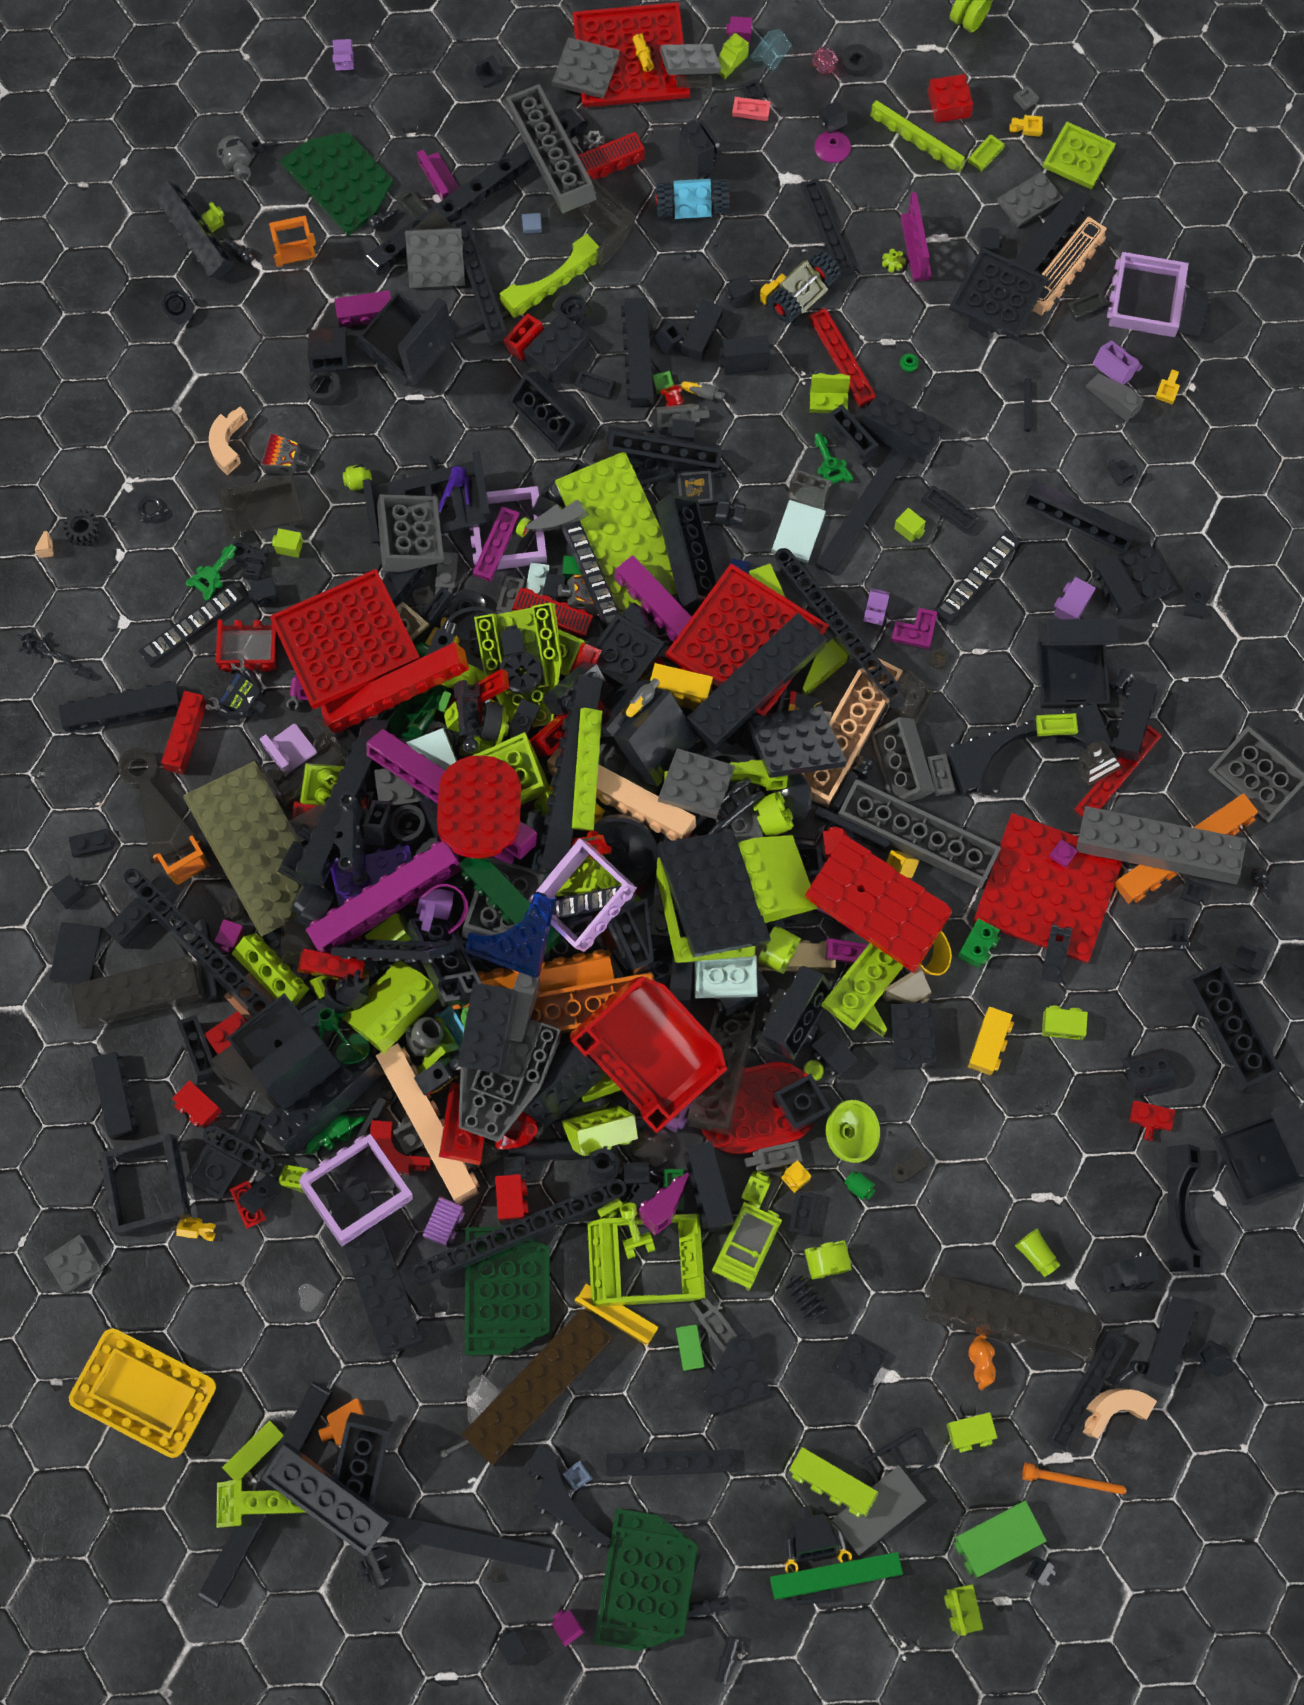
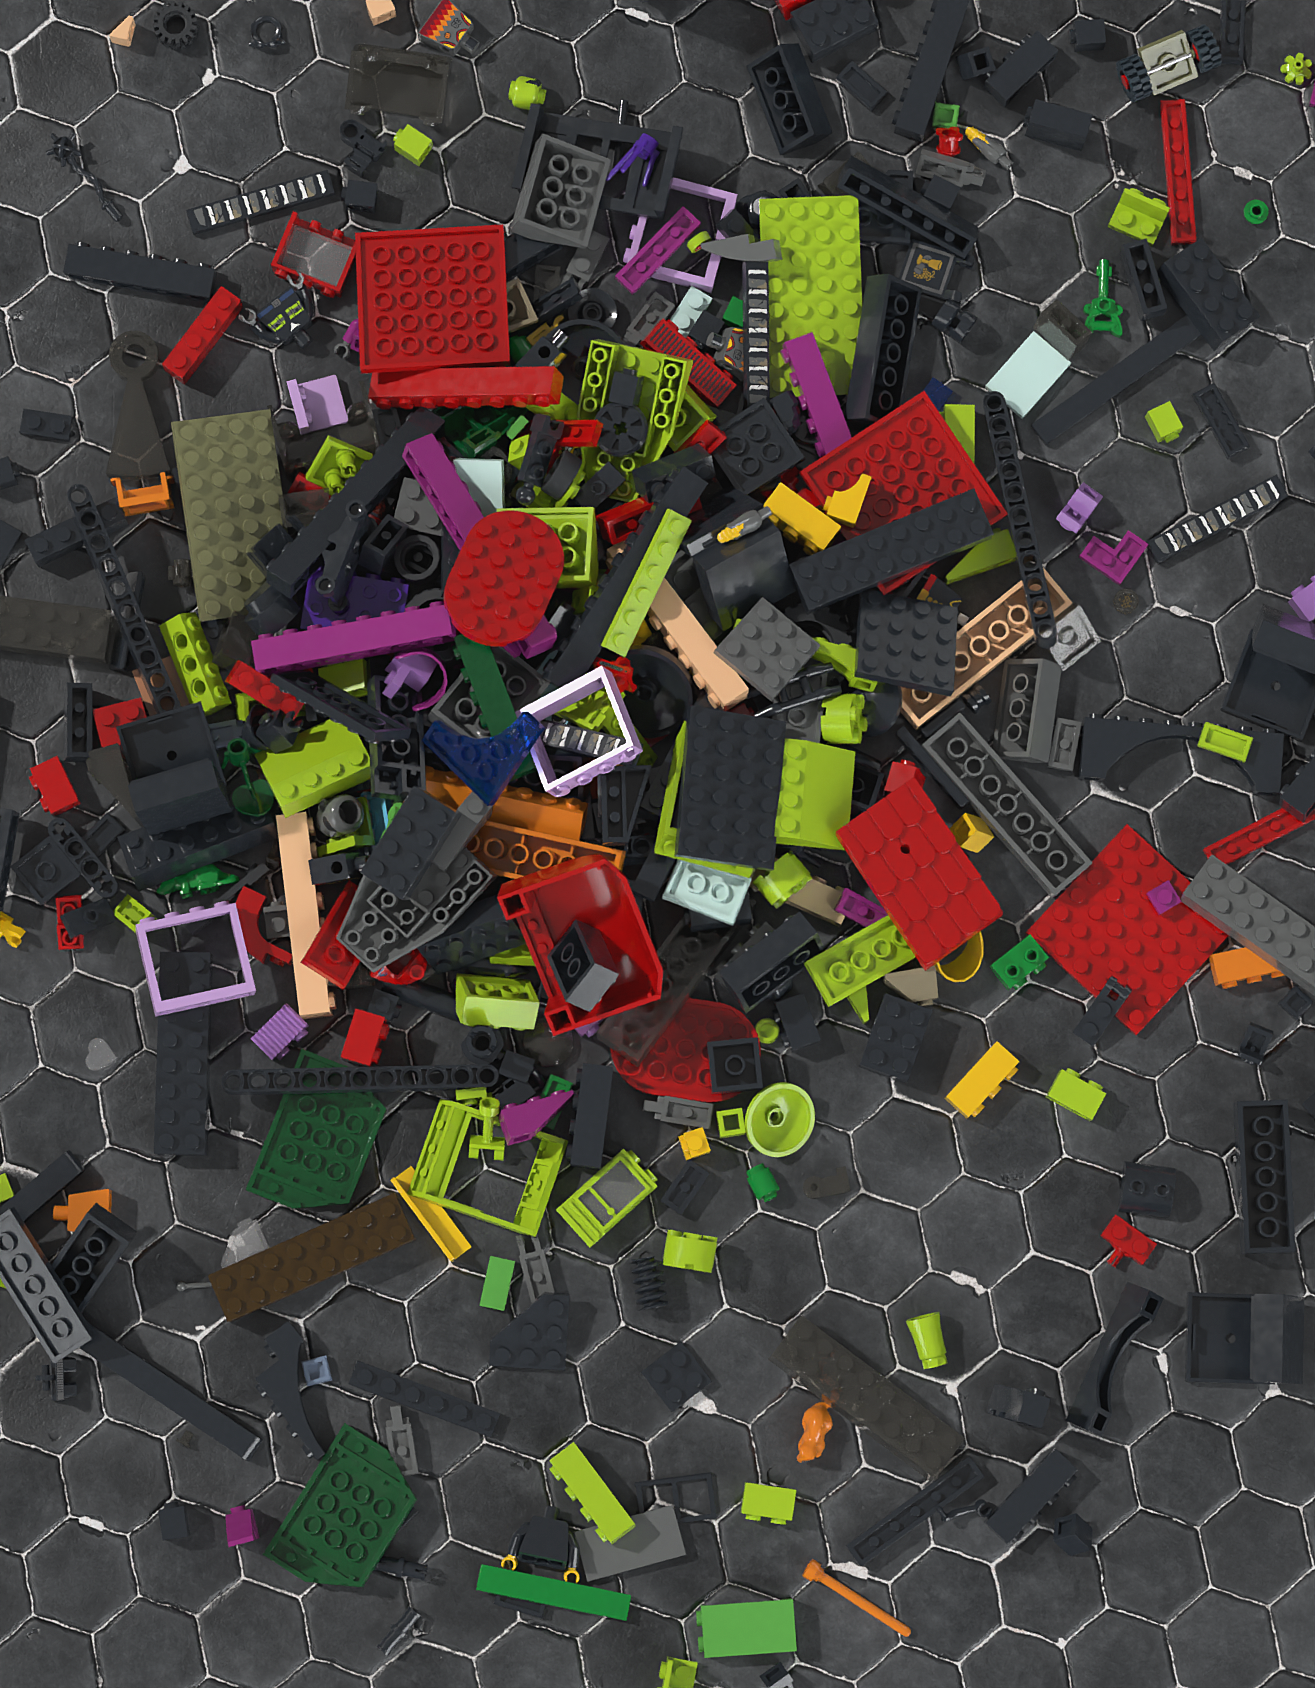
camera: 15 degrees right, 10 degrees up
(211, 574) = (307, 148): green piece -> none
(229, 936) = (164, 604): magenta brick -> none
(657, 1069) = (582, 965): none -> black brick
(666, 1504) = (401, 1442): none -> dark grey hinge
(710, 660) = (846, 505): none -> yellow arch
(757, 1187) = (646, 1137): lime bracket -> none
(769, 289) = (1124, 48): yellow plate -> none
(817, 1149) = (730, 1123): none -> lime brick
(1097, 762) = (1253, 806): clear smoke torso -> none
(1114, 1400) = (937, 1534): light nougat arch -> none

